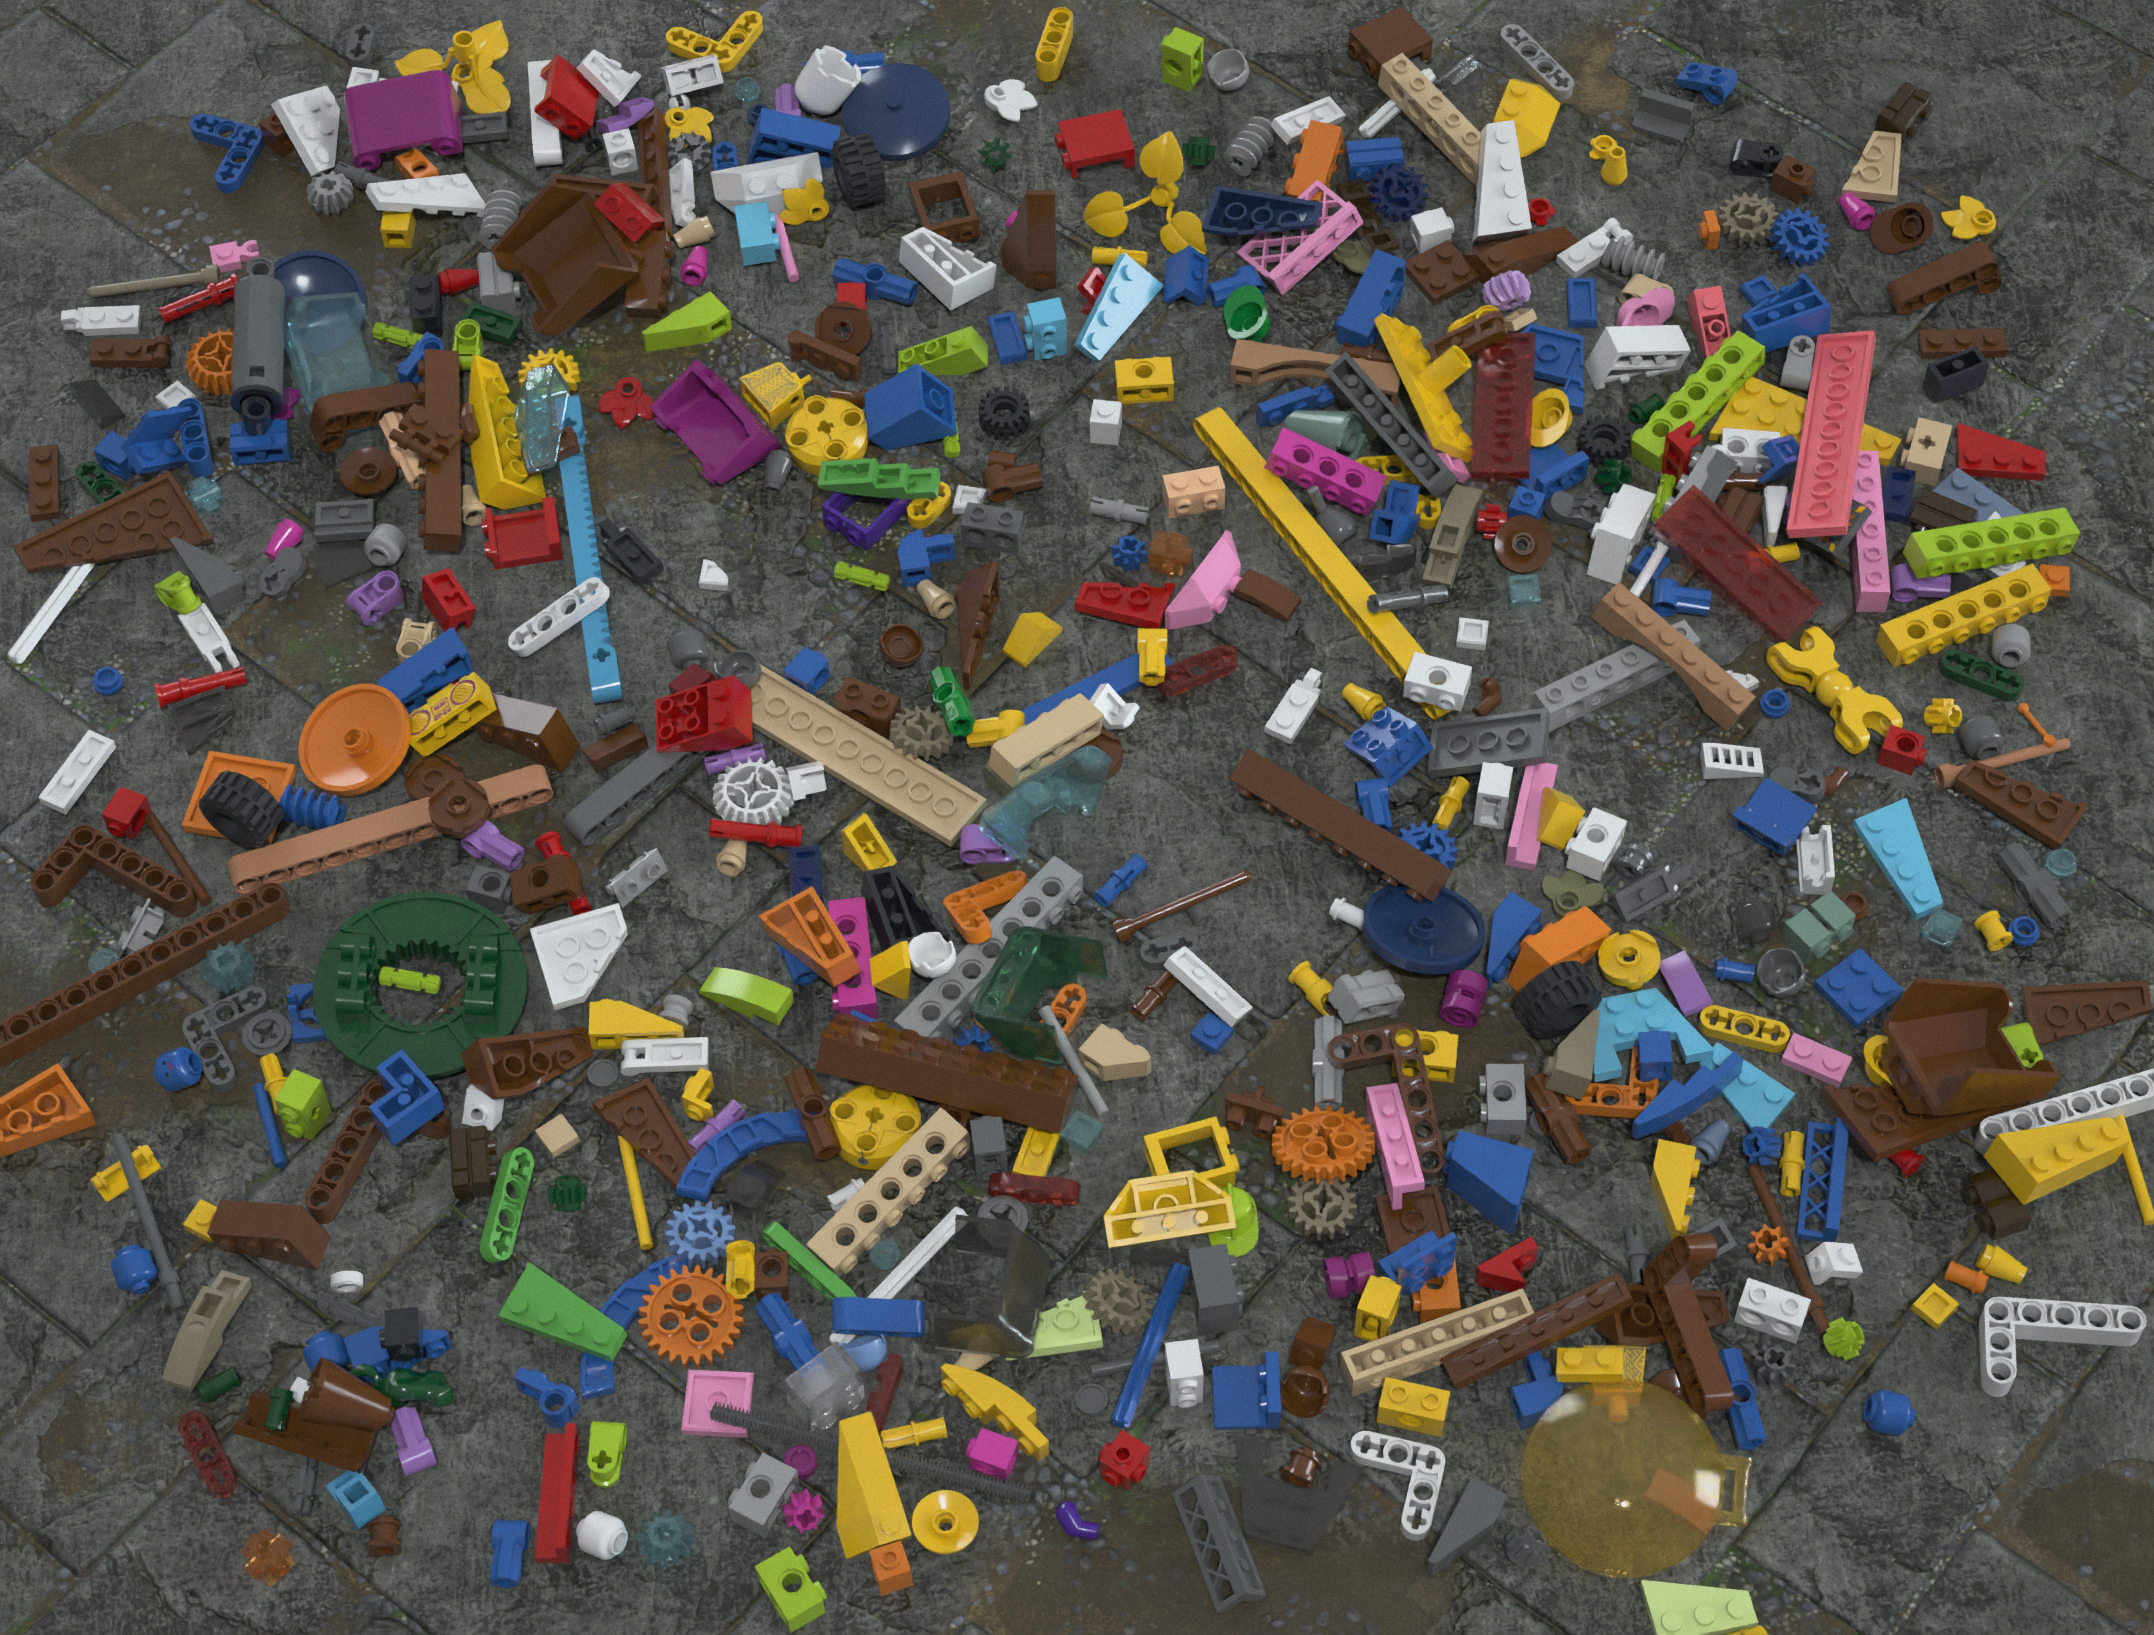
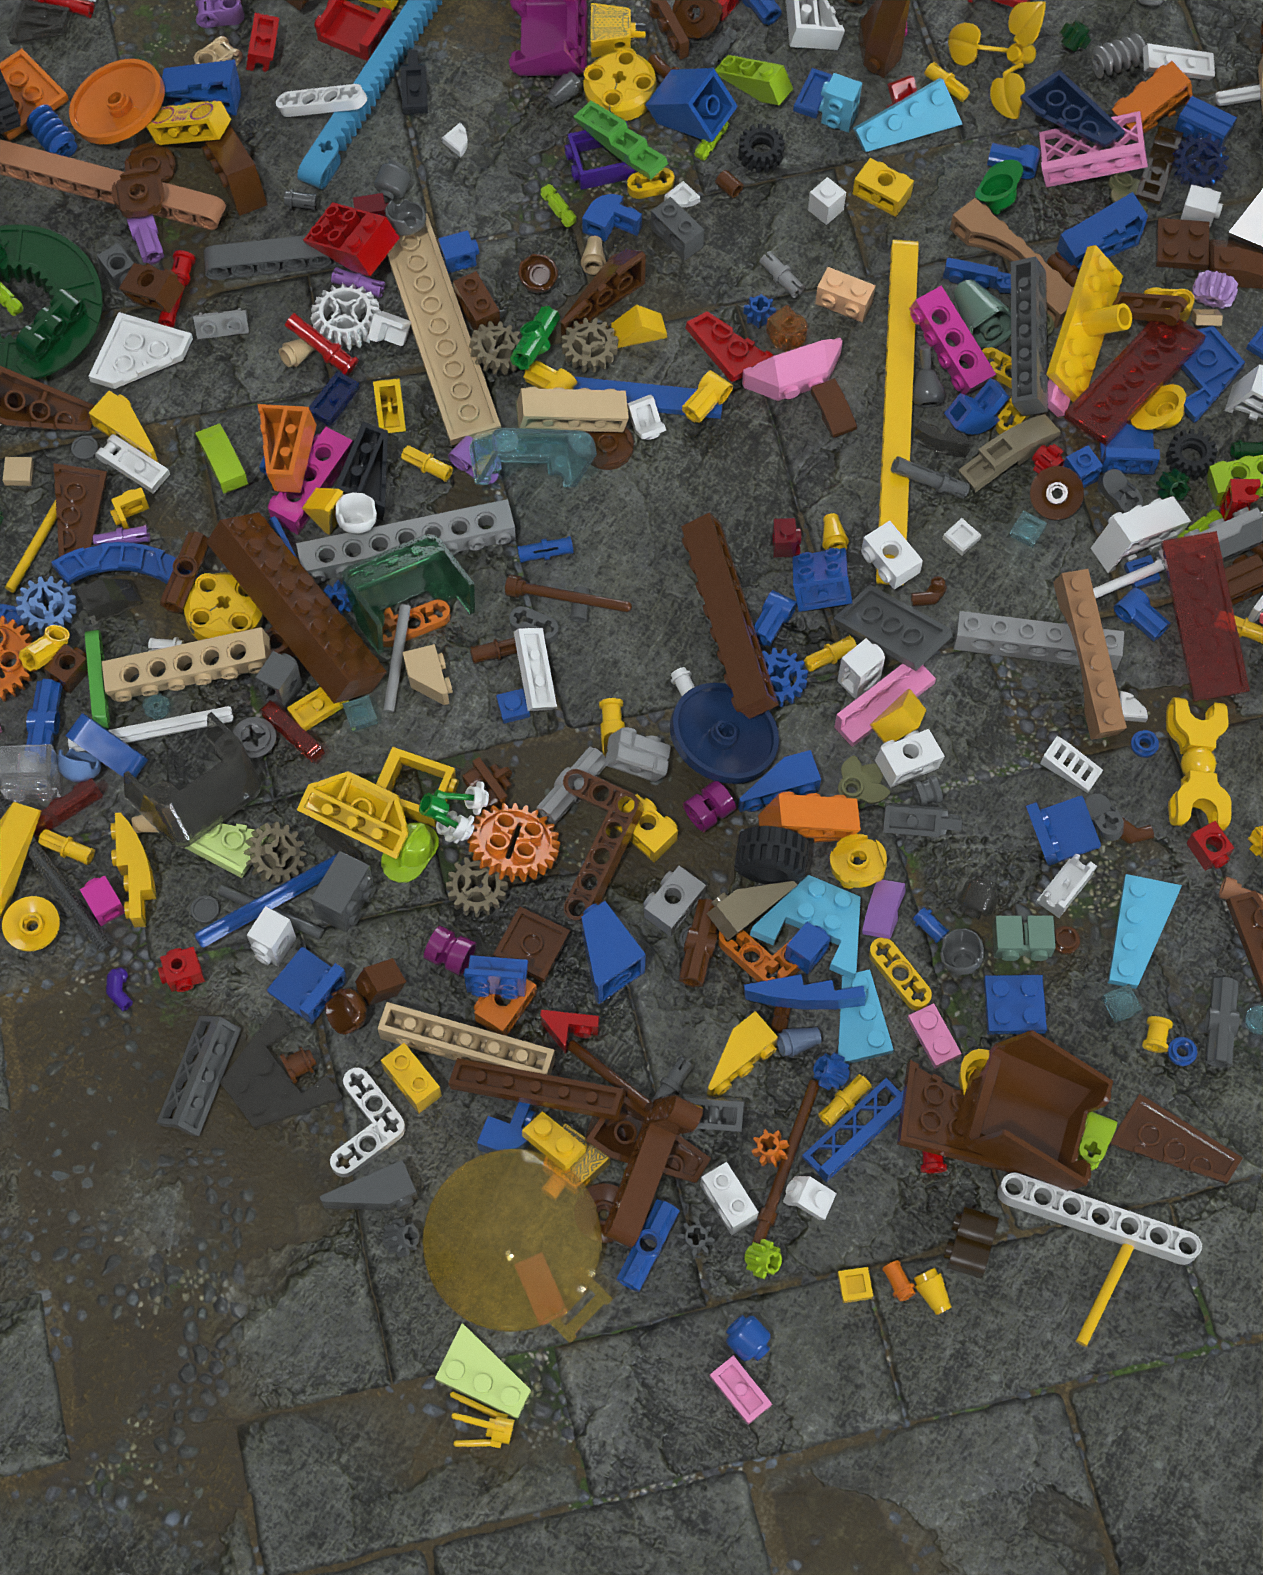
camera: 35 degrees right, 10 degrees up
(615, 747) = (286, 221): reddish brown slope -> none
(677, 1009) = (163, 437): light grey wheel -> none
(944, 876) = (427, 463): none -> yellow axle
(966, 906) = (421, 492): orange beam -> none
(1003, 678) = (589, 345): none -> dark tan gear
(1004, 482) = (717, 200): reddish brown piece -> none
(1186, 276) = (985, 128): blue panel -> none
(1203, 659) = (741, 440): clear red beam -> none
(1240, 1157) = (448, 823): none -> plant
(1295, 708) = (783, 504): white hinge -> none
(1330, 727) = (785, 538): none -> dark red brick
(1377, 1308) = (443, 989): yellow brick -> none
(1393, 1142) = (558, 877): bright pink fence -> none
(1583, 1279) = (609, 1075): none -> reddish brown bar
(1919, 1460) = (740, 1390): none -> bright pink plate
(2047, 1329) = (924, 1364): white beam -> none
(2054, 1156) = (1039, 1240): yellow wedge -> none

